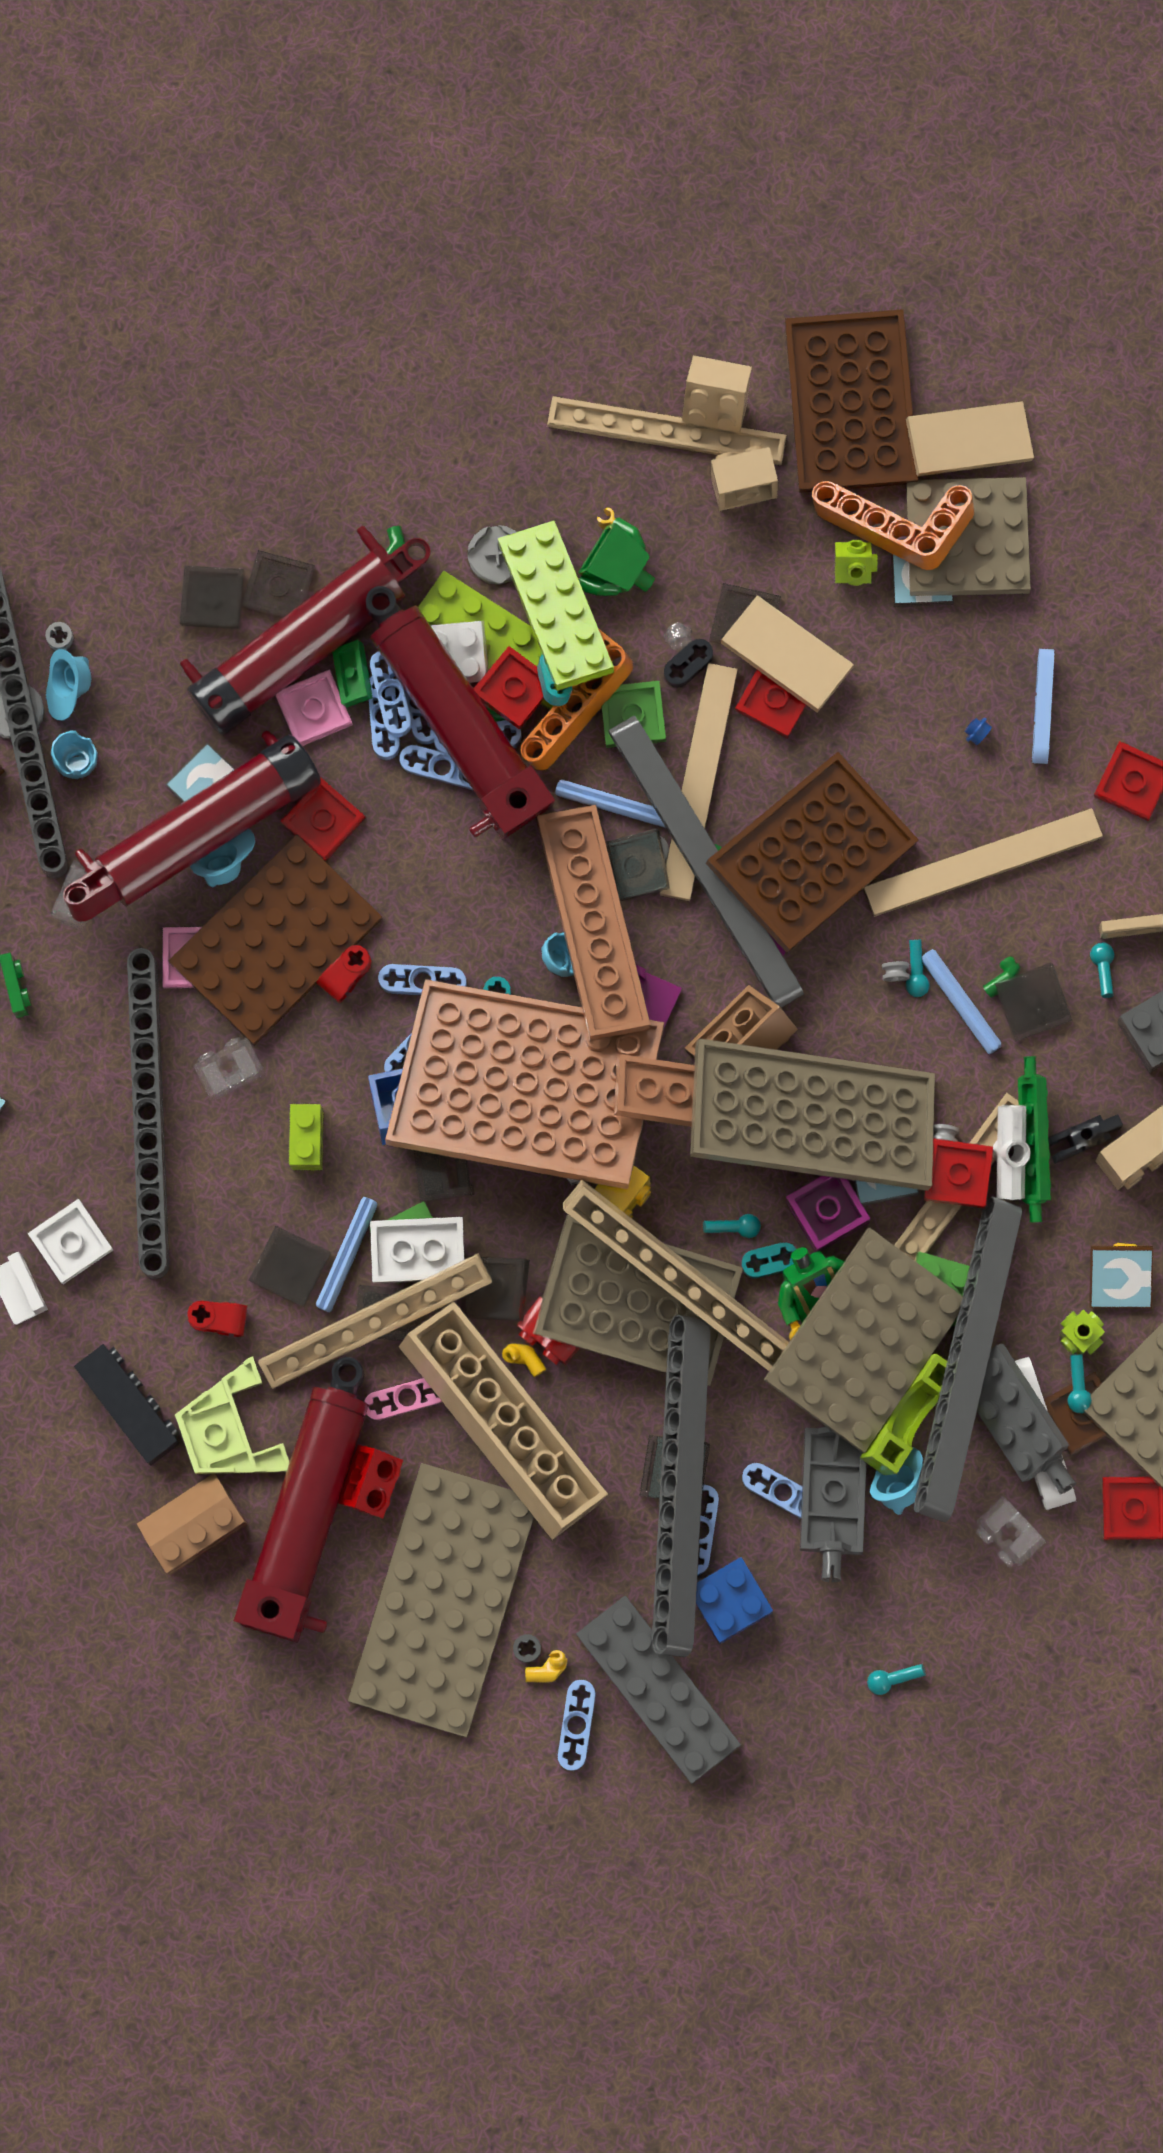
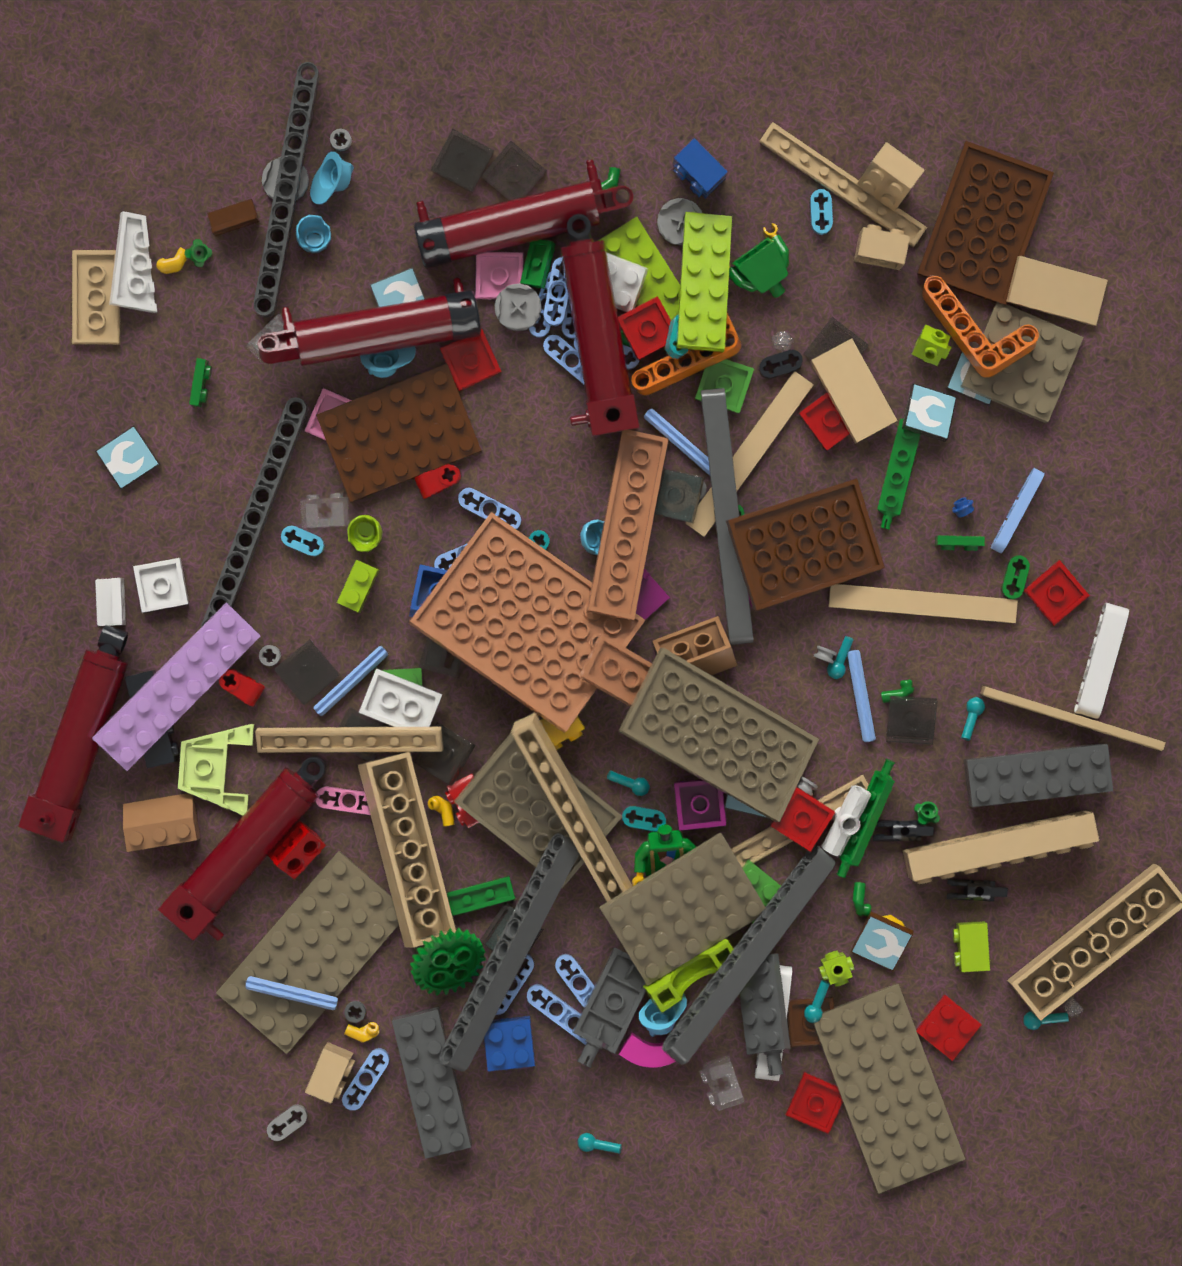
camera: 15 degrees right, 10 degrees up
(49, 1467) = (54, 806): none -> dark red piece
(140, 1348) = (176, 686): none -> lavender plate
(216, 1108) = (300, 546): none -> medium azure beam
(241, 1259) = (275, 650): none -> light grey bush
(283, 1065) = (366, 526): none -> lime hair
(351, 732) = (518, 307): none -> light grey tile
(439, 1656) = (291, 993): none -> light blue axle
(491, 483) = (699, 169): none -> blue brick
(497, 1818) = (283, 1118): none -> light grey beam
(529, 1731) = (328, 1074): none -> tan brick
(611, 1531) = (447, 961): none -> green gear
(617, 1438) = (480, 895): none -> green plate
(650, 475) = (815, 212): none -> medium azure beam
(782, 1544) = (563, 1018): none -> light blue beam
(883, 718) = (898, 474): none -> green plate
(887, 640) = (929, 412): none -> tile
(902, 1539) = (644, 1053): none -> dark pink arch
(981, 776) = (970, 543): none -> green plate
(1070, 785) = (1020, 579): none -> green beam
(1070, 1241) = (858, 900): none -> green arm
(1103, 1102) = (931, 809): none -> green plate

